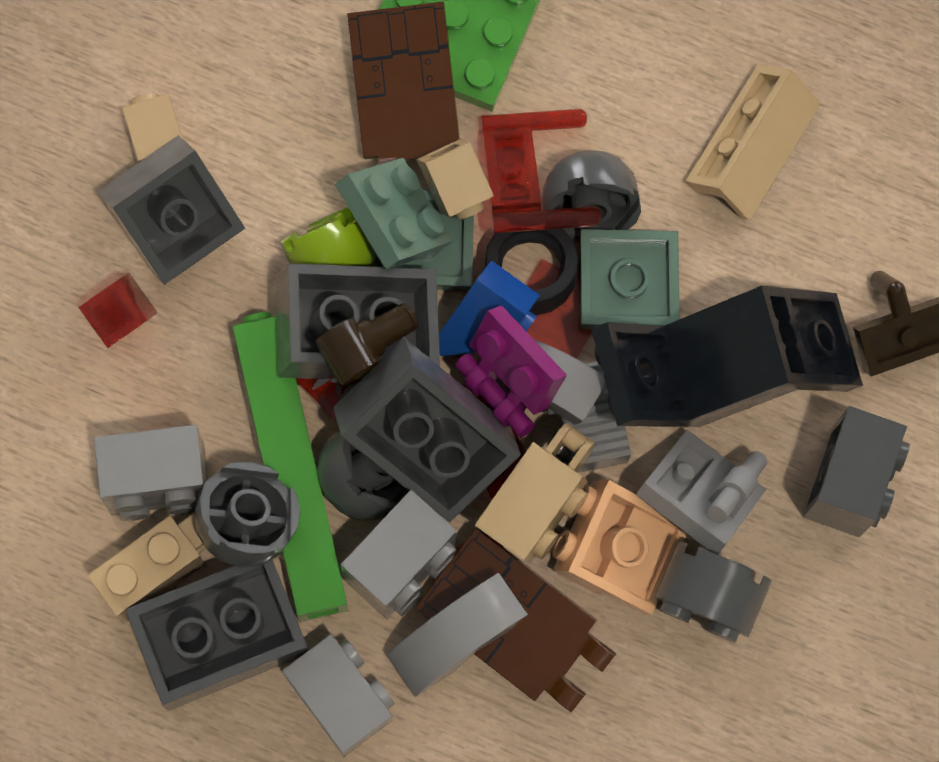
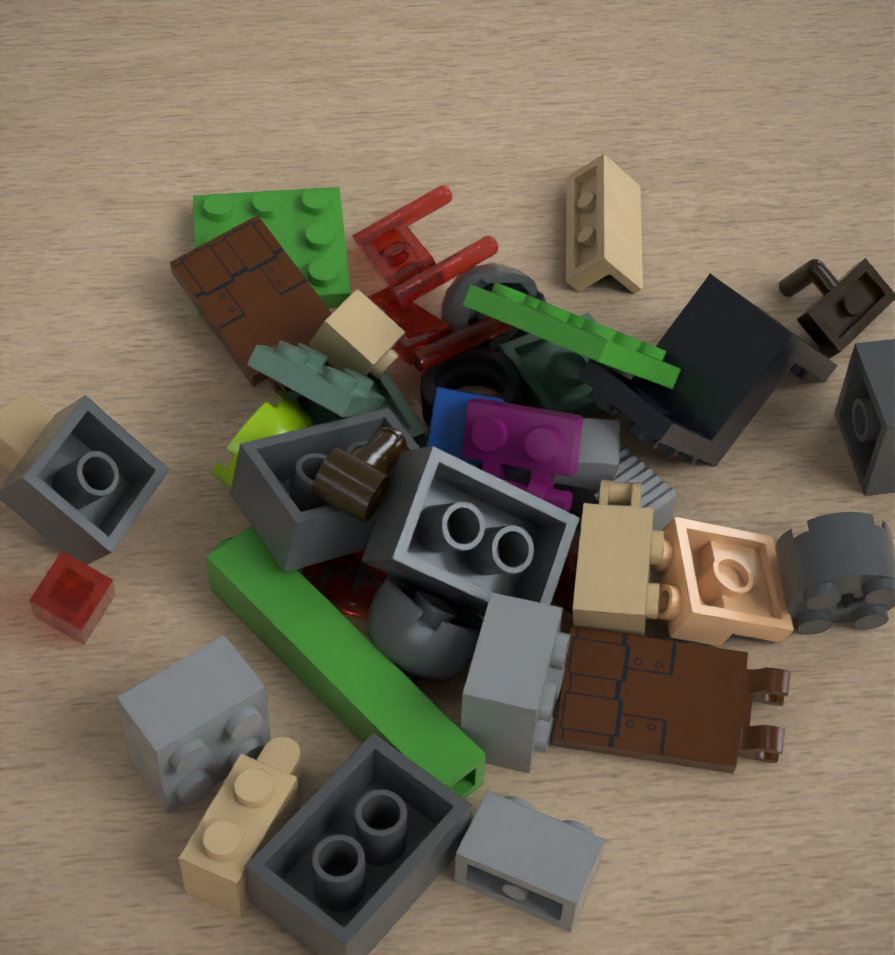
camera: 25 degrees left, 25 degrees down
(246, 514) = (327, 707): dark grey cylinder -> none
(456, 634) = (617, 731): light grey brick -> none
(549, 94) = (403, 260): none -> clear red plate
(613, 286) = (573, 332): none -> bright green plate
(704, 490) = (767, 499): light grey plate -> none

